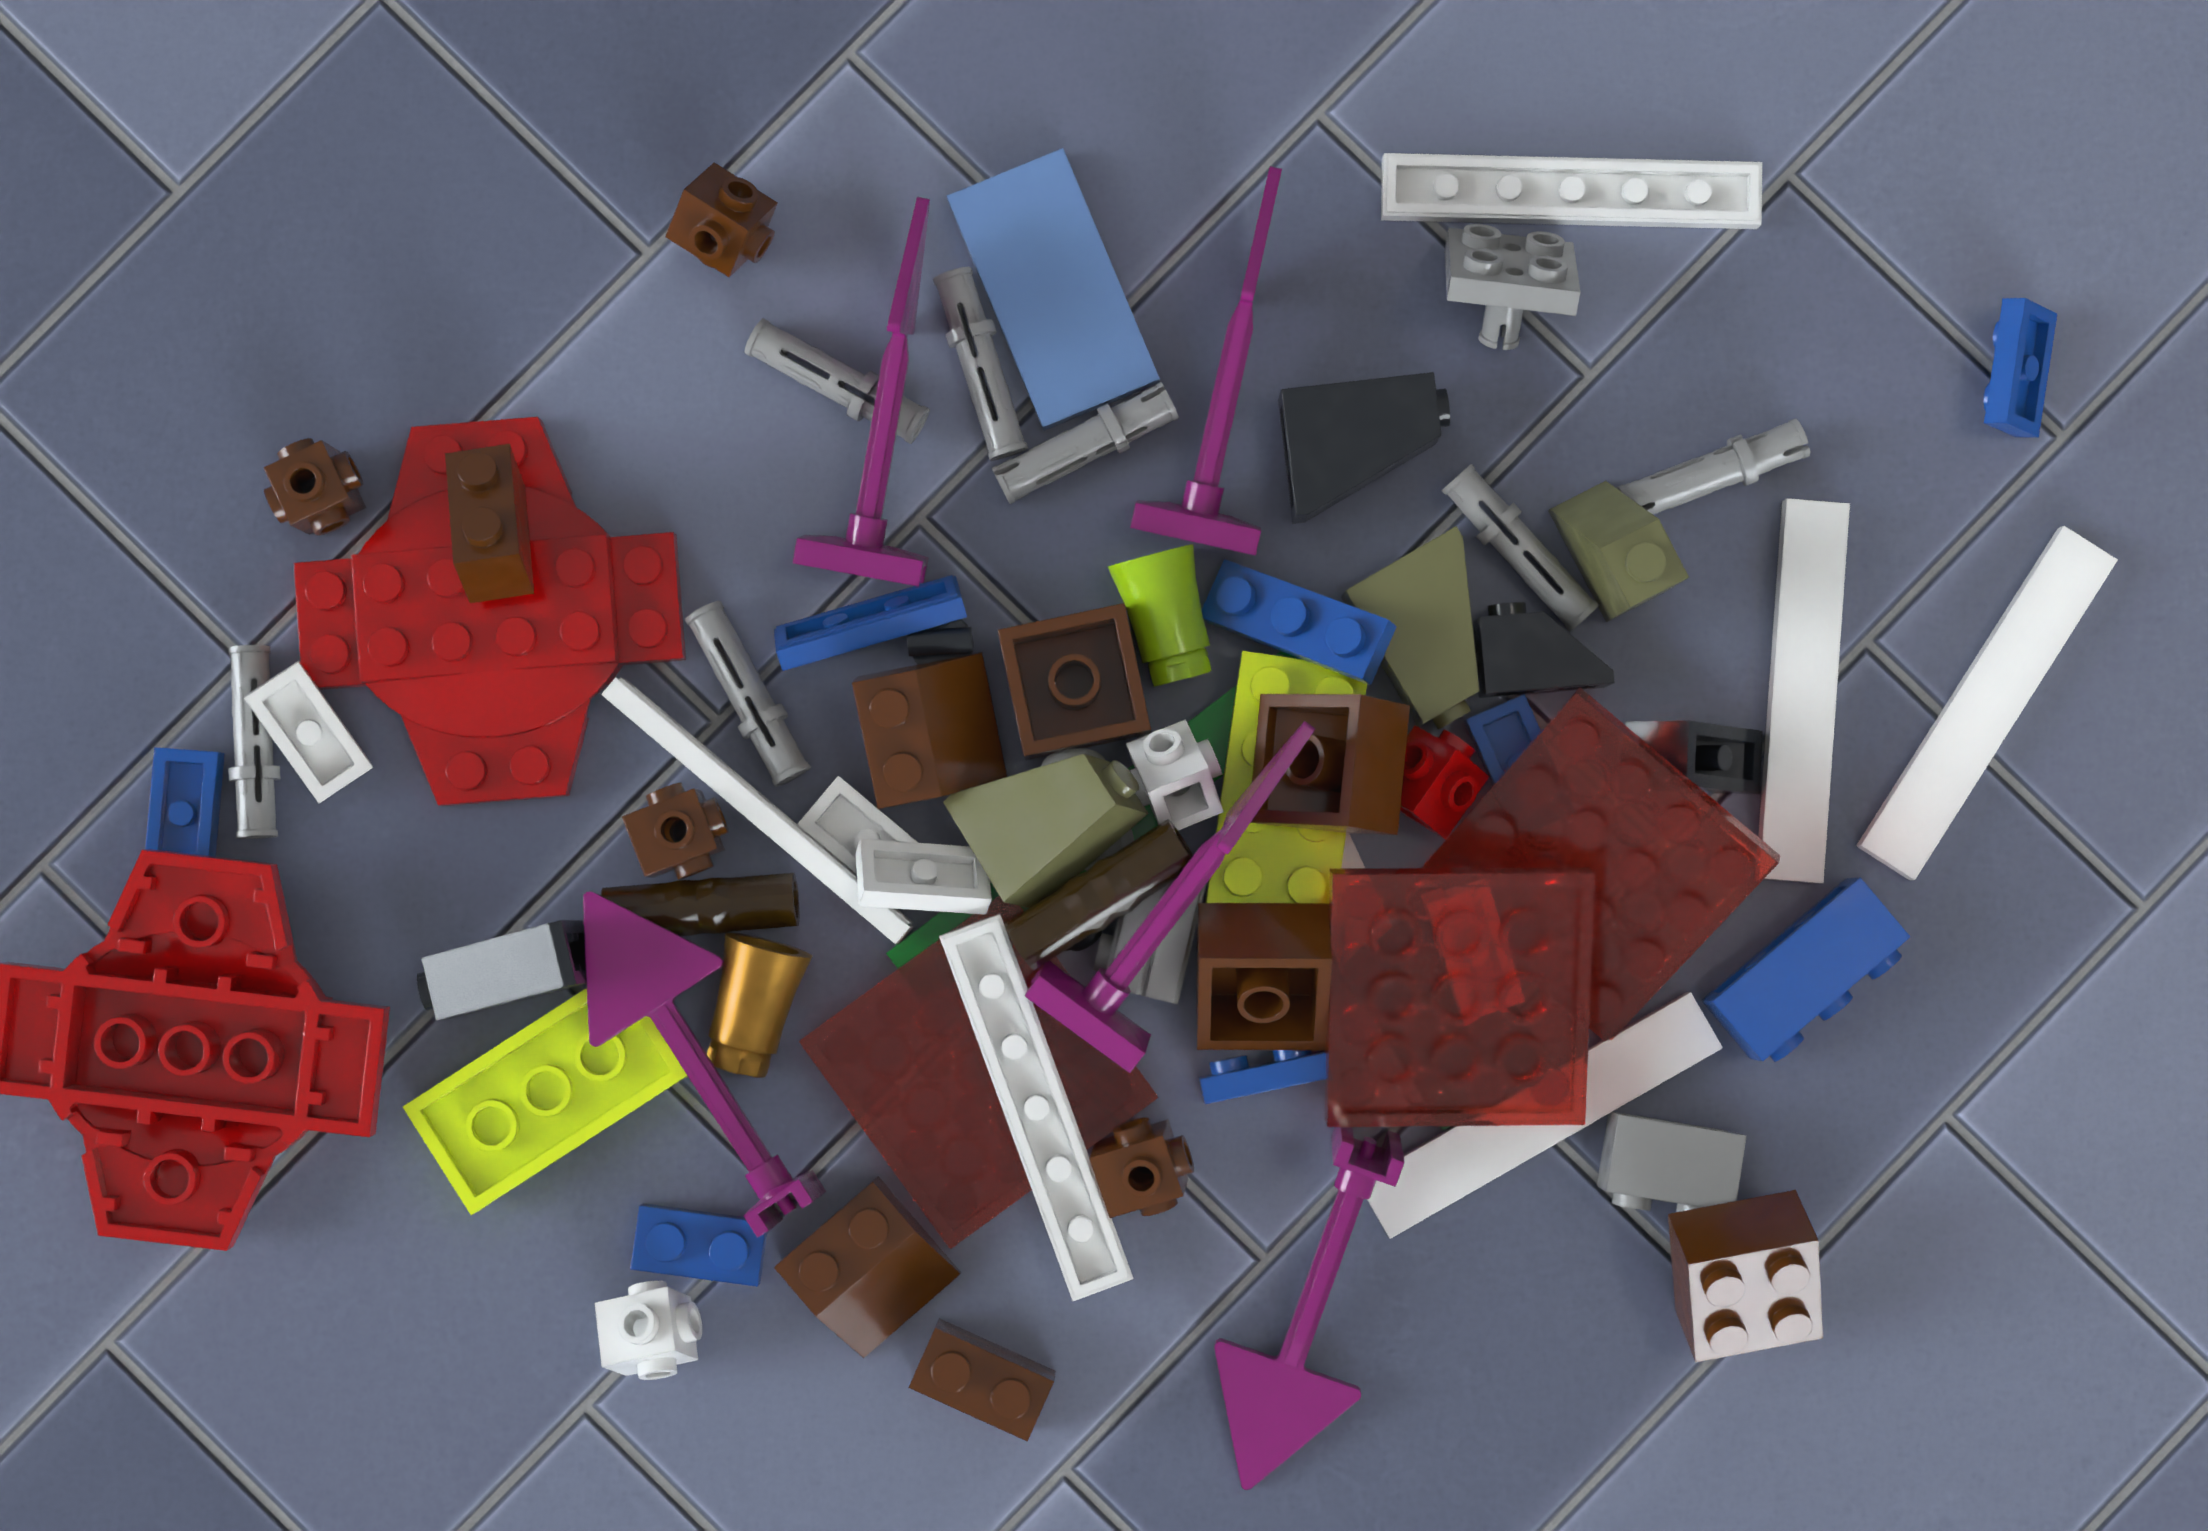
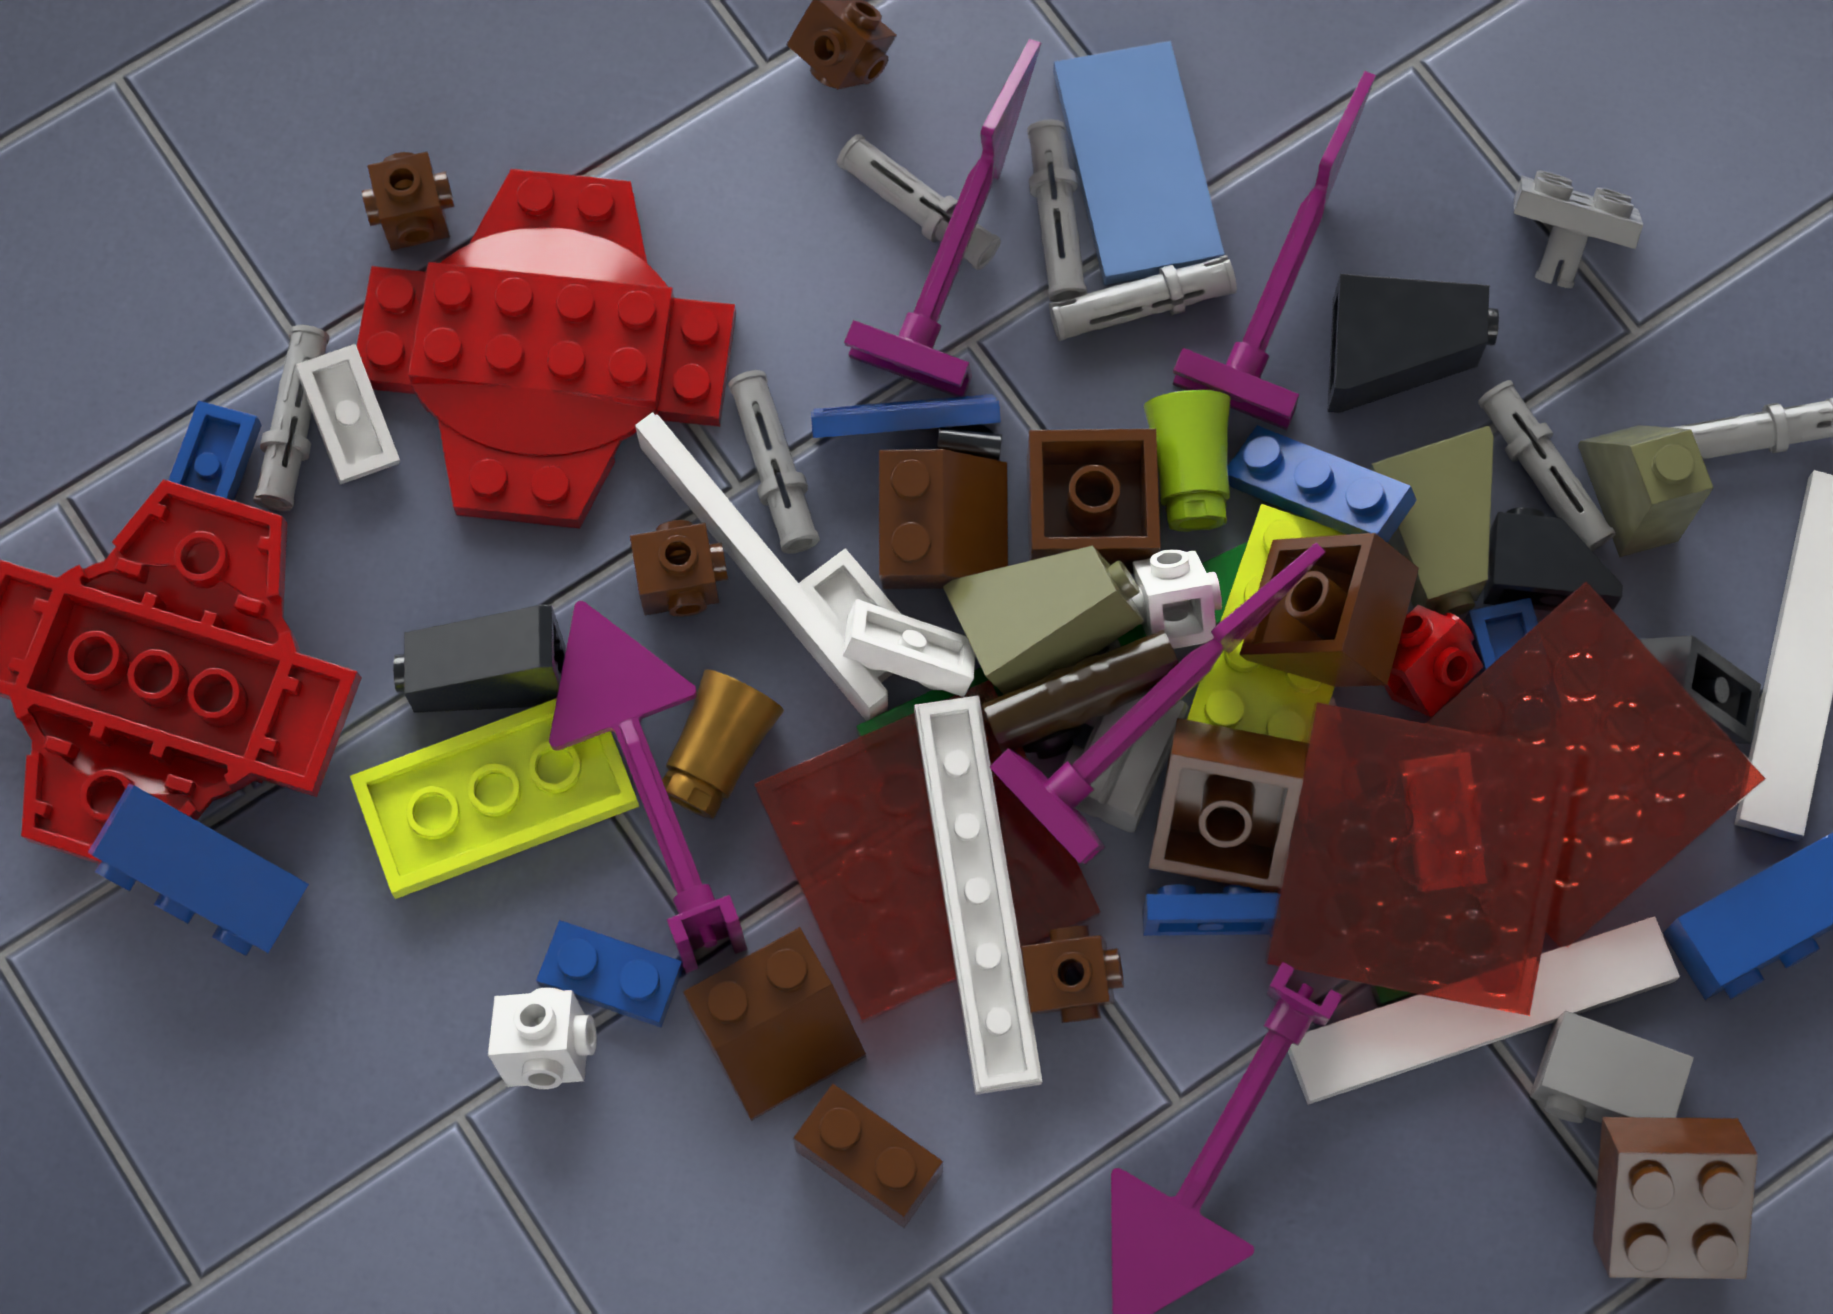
camera: 10 degrees right, 15 degrees down
(277, 1240) = (196, 871): none -> blue brick
(489, 523) = (566, 247): reddish brown brick -> none
(714, 903) = (705, 644): dark brown axle -> none
(1571, 191) = (1645, 165): white tile -> none

